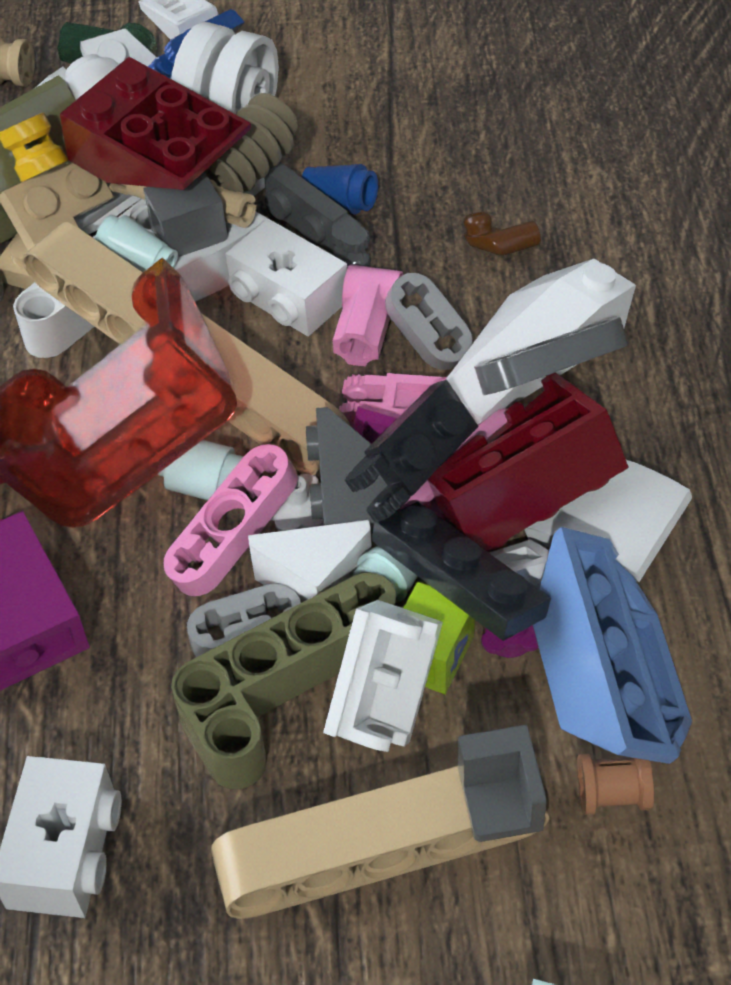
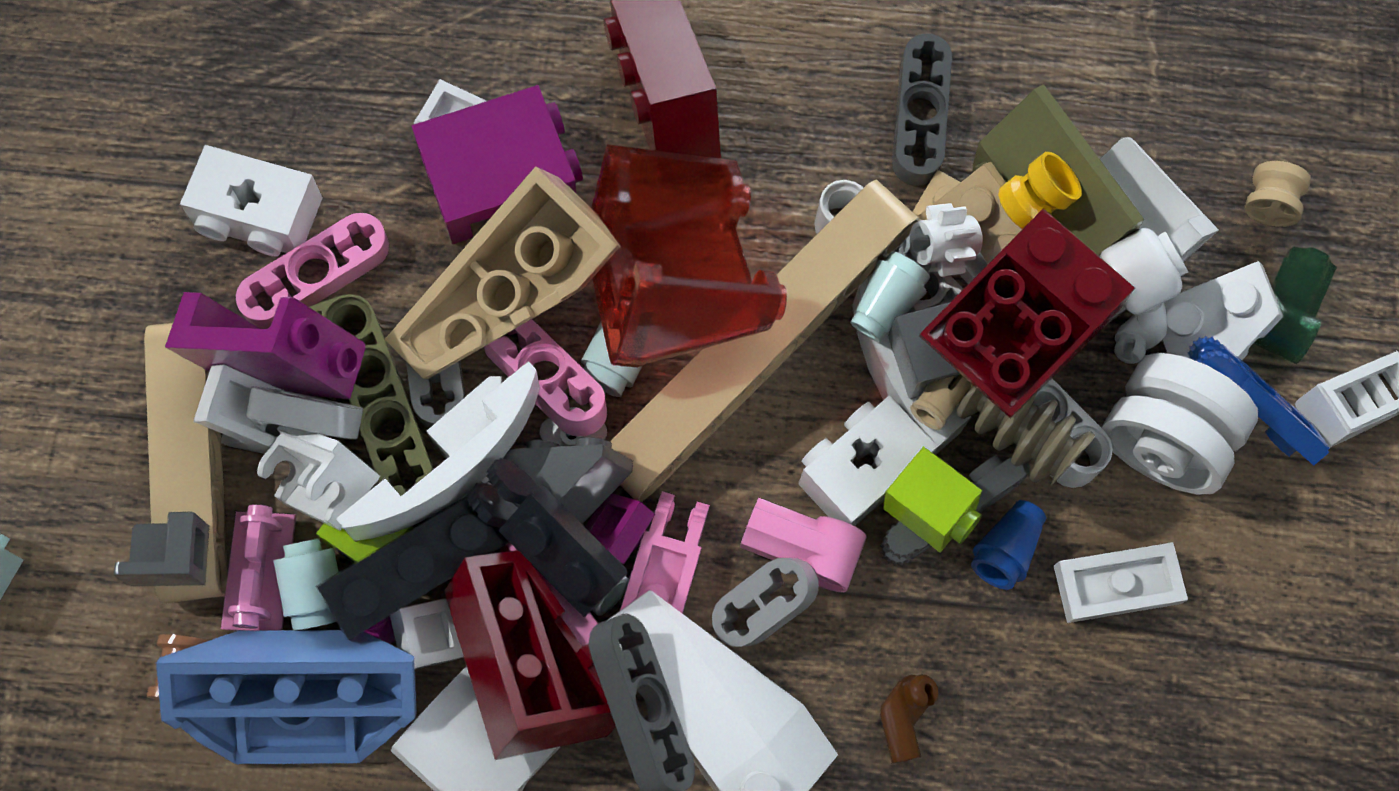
camera: 90 degrees right, 20 degrees up
(71, 199) = (946, 239): none -> white gear
(131, 532) = (518, 265): none -> tan wedge
(143, 790) = (318, 247): none -> bright pink beam
(267, 732) = (296, 353): none -> magenta panel
(296, 499) = (386, 512): none -> white slope
(317, 769) = (225, 408): none -> white slope
(319, 687) = (304, 412): none -> light grey beam
(321, 201) = (934, 500): none -> lime brick
(358, 124) = (1120, 582): none -> white plate
(442, 732) = (252, 586): none -> bright pink hinge
(496, 676) = (297, 578): none -> light aqua brick

